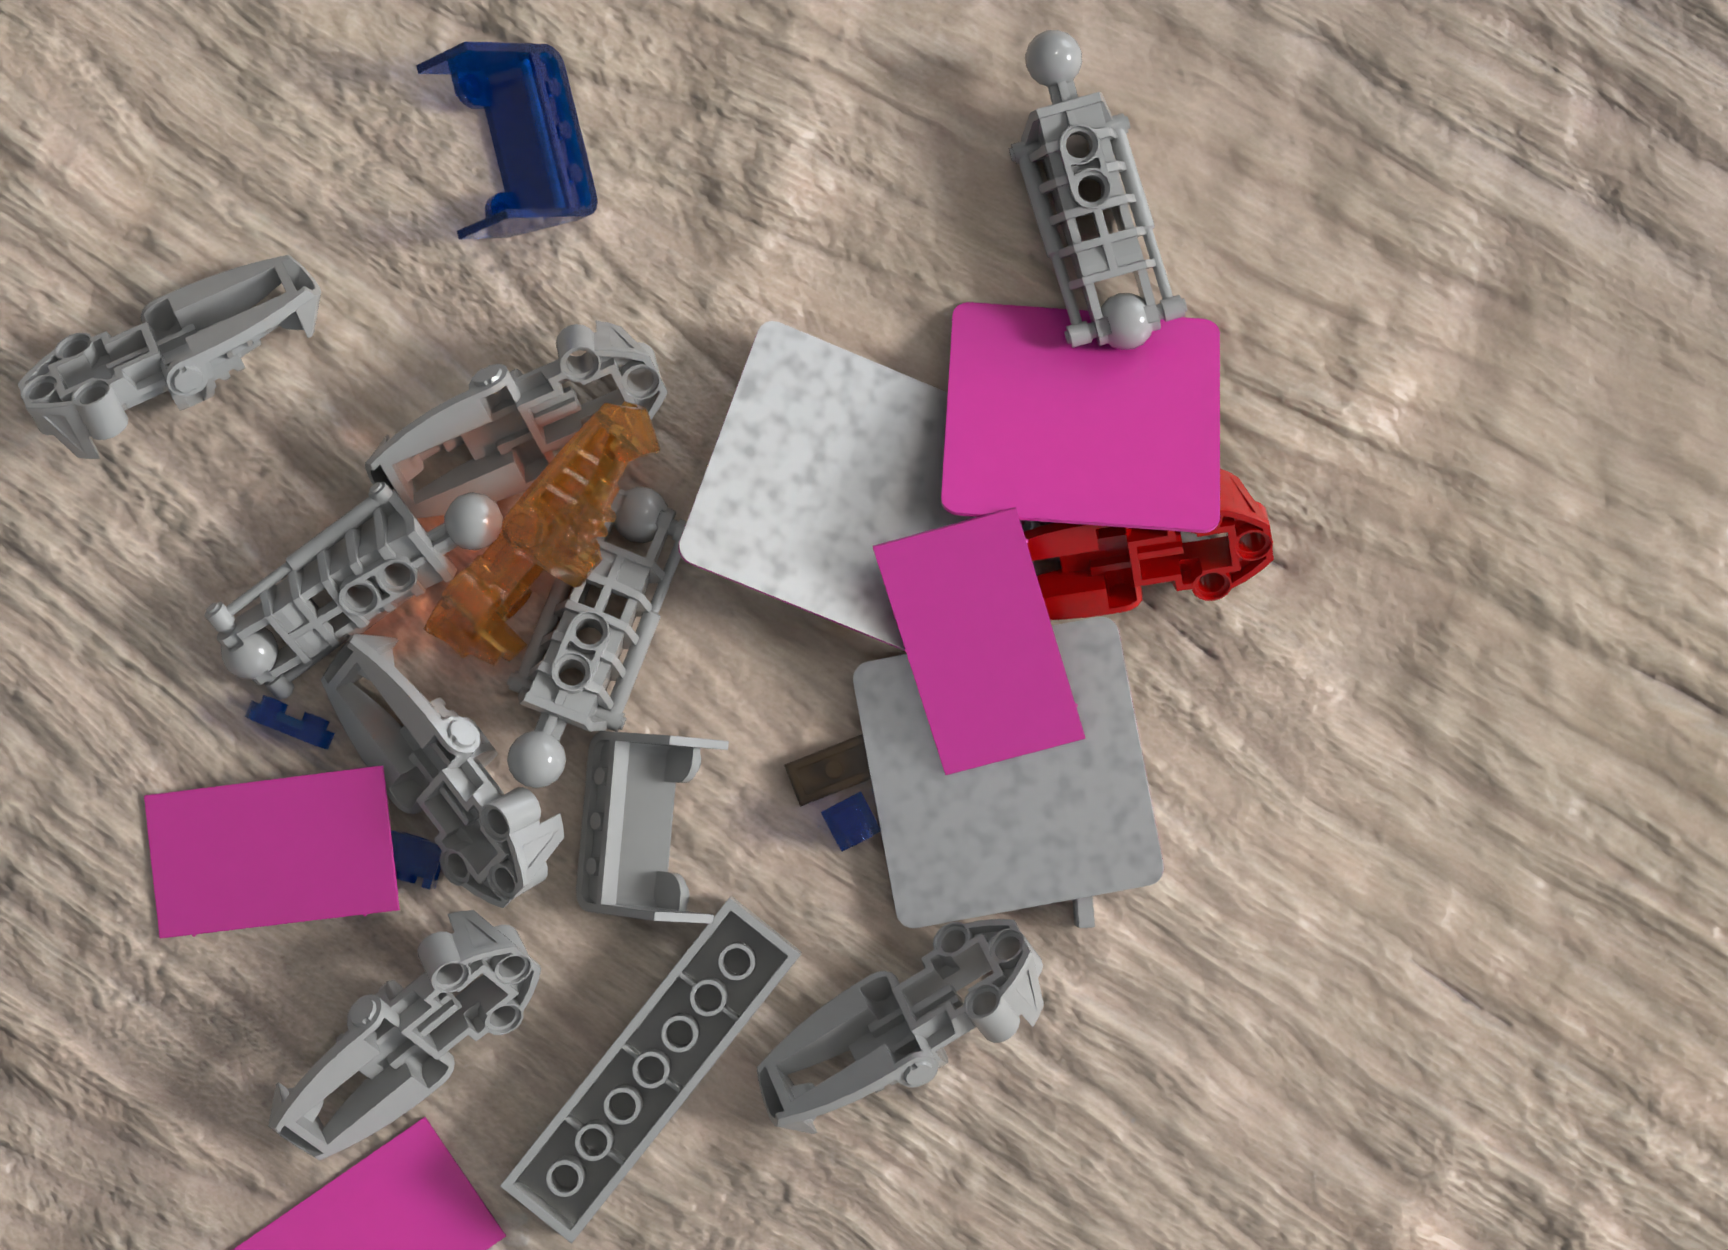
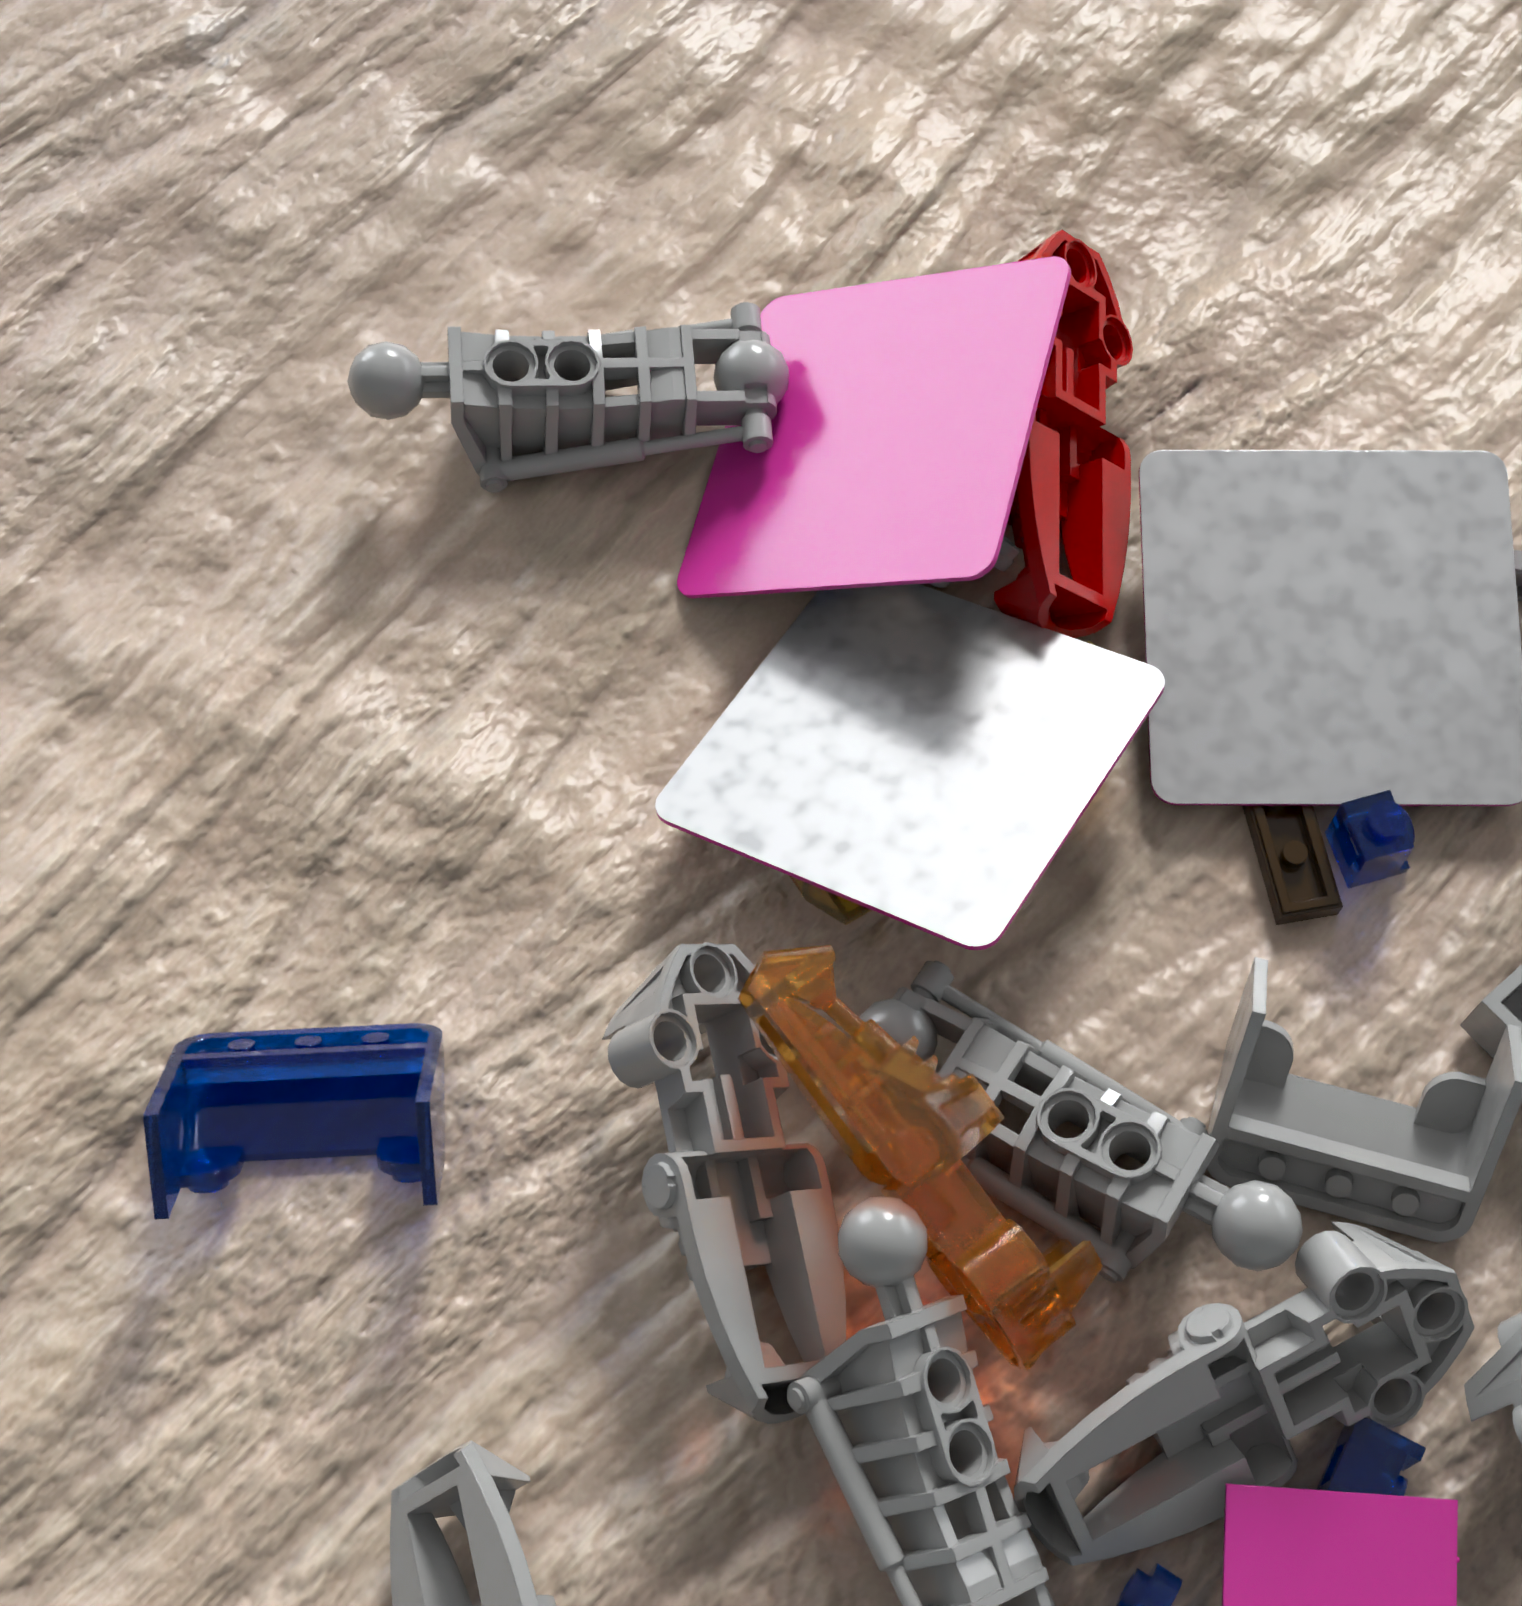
camera: 80 degrees left, 20 degrees down
(979, 641) = (1160, 593): dark pink piece -> none

